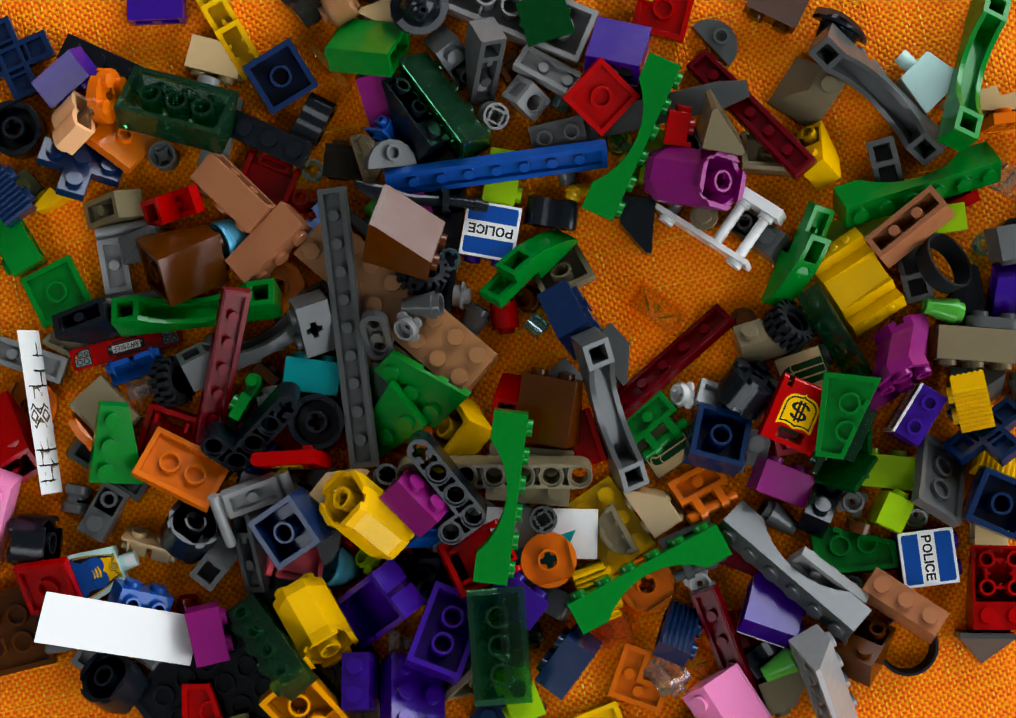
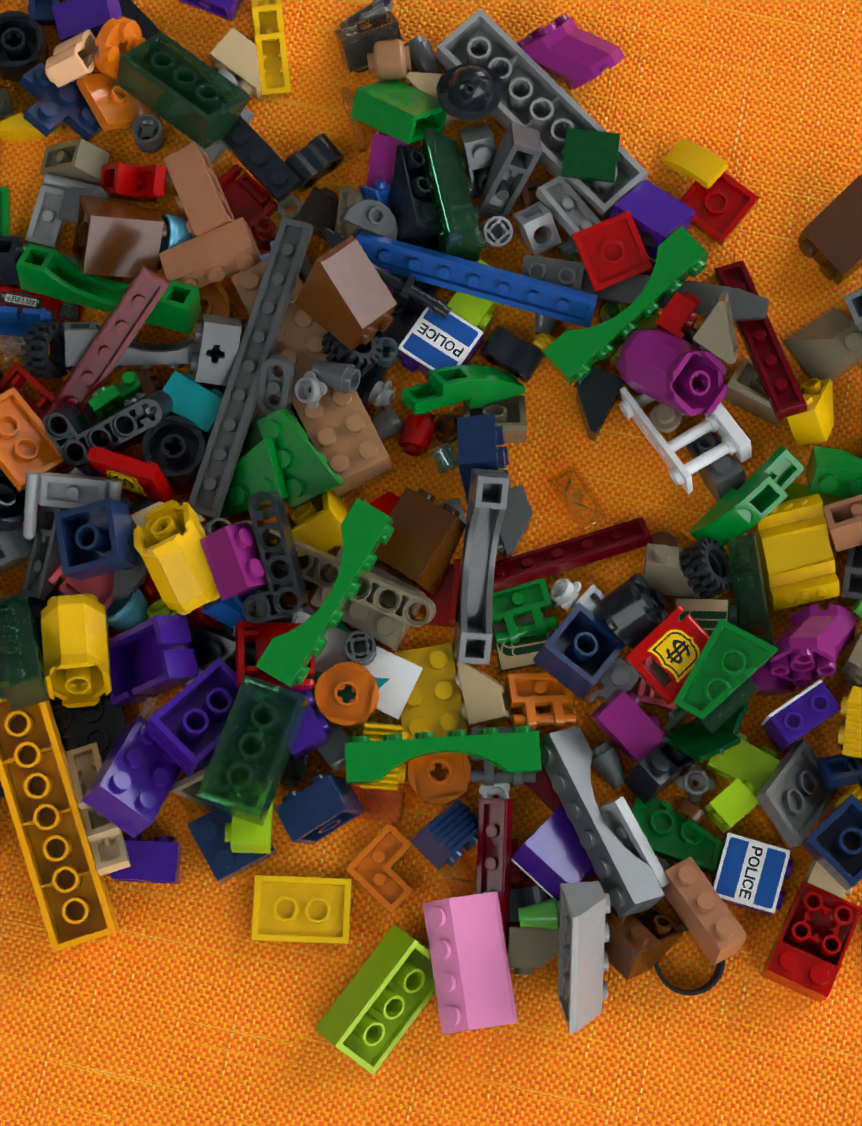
camera: 25 degrees right, 10 degrees down
(279, 76) = (299, 103): dark blue brick -> none
(359, 682) = (92, 732): dark purple brick -> none
(614, 532) = (429, 699): dark tan plate -> none
(667, 676) = (416, 874): clear brick -> none
(718, 38) = (760, 255): dark grey plate -> none
(918, 521) = (757, 816): light grey plate -> none
(984, 643) = (773, 996): dark grey slope -> none

